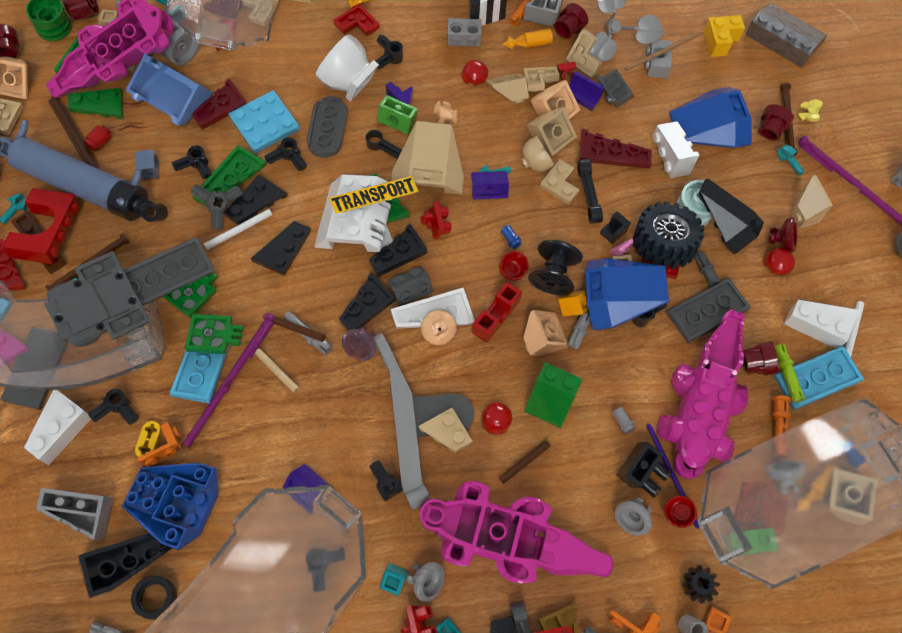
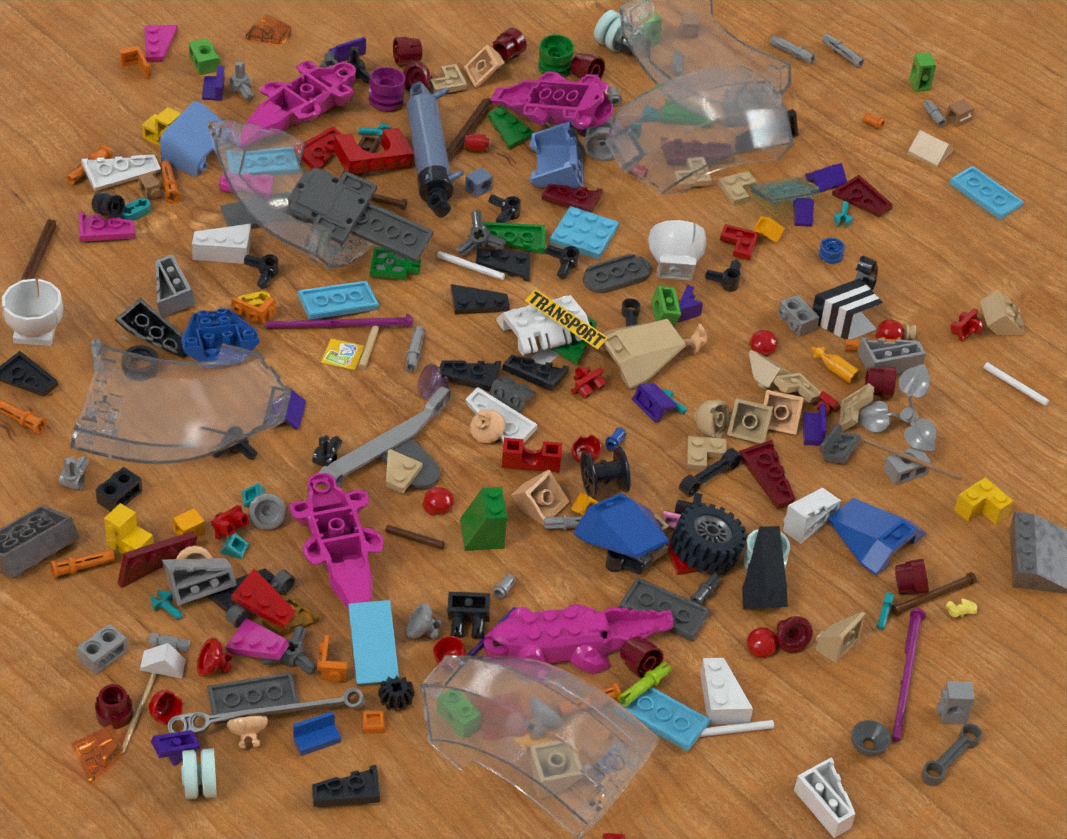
camera: 55 degrees right, 20 degrees down
(212, 334) = (365, 290): green piece -> none
(267, 397) = (342, 354): none -> sticker
(299, 329) = (412, 338): reddish brown bar -> none
(639, 573) = (373, 642): none -> medium azure tile

